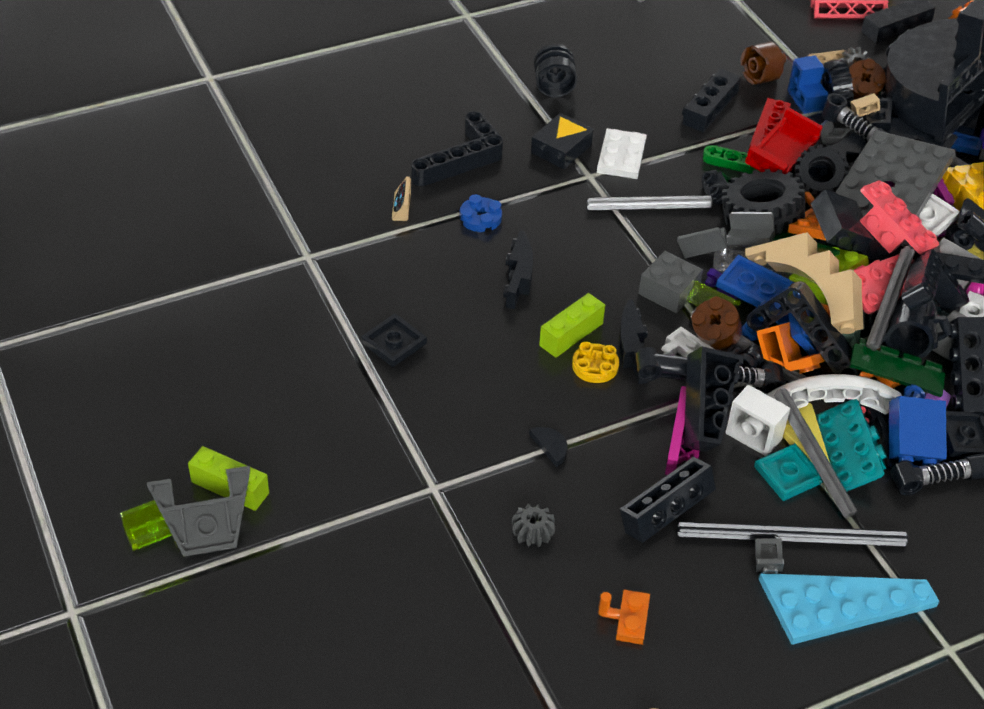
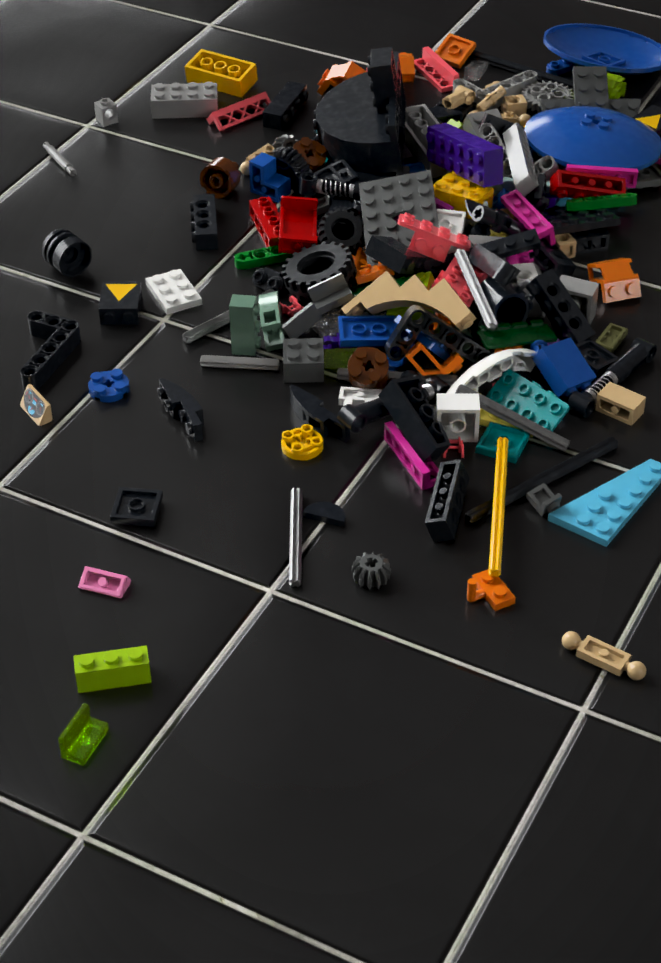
camera: 35 degrees left, 5 degrees down
(204, 524) = (131, 708): dark grey wing -> none
(304, 394) = (104, 582): none -> bright pink slope
(500, 451) = (295, 548): none -> flat silver axle
(572, 325) = (262, 425): lime brick -> none
(612, 251) = (239, 362): none -> light grey axle
(638, 217) = (244, 325): none -> sand green brick
(678, 222) = (271, 320): none -> sand green slope
(705, 221) = (287, 309): none -> coral piece
(711, 536) = (498, 510): none -> yellow axle
(725, 444) = (460, 447): none -> coral piece
(865, 105) = (330, 171): tan piece -> none
(950, 501) = (620, 403): none -> tan brick

